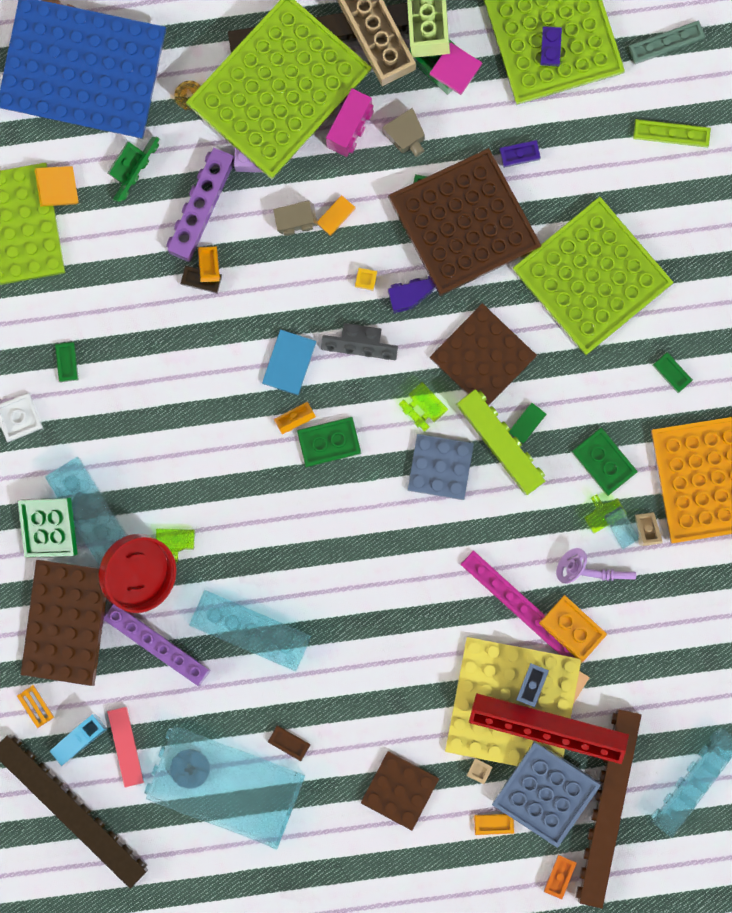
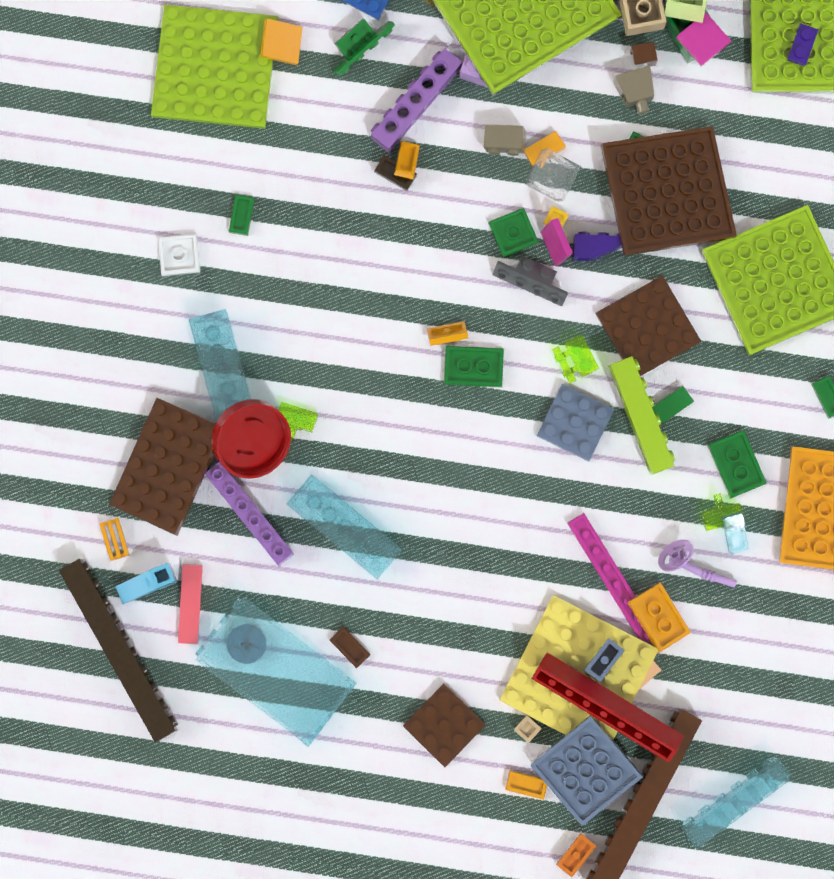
camera: 10 degrees right, 0 degrees up
(47, 527) = (177, 369): plate -> none
(289, 362) = (457, 278): dark azure tile -> none
(329, 303) = (513, 232): none -> green tile
(350, 123) = (584, 62): dark pink brick -> none
(350, 238) = (552, 175): none -> clear brick
(372, 301) = (556, 242): none -> dark pink tile
(404, 97) = (644, 54): none -> reddish brown panel
(520, 153) = (741, 140): dark purple plate -> none
(648, 529) = (760, 542): tan slope -> none

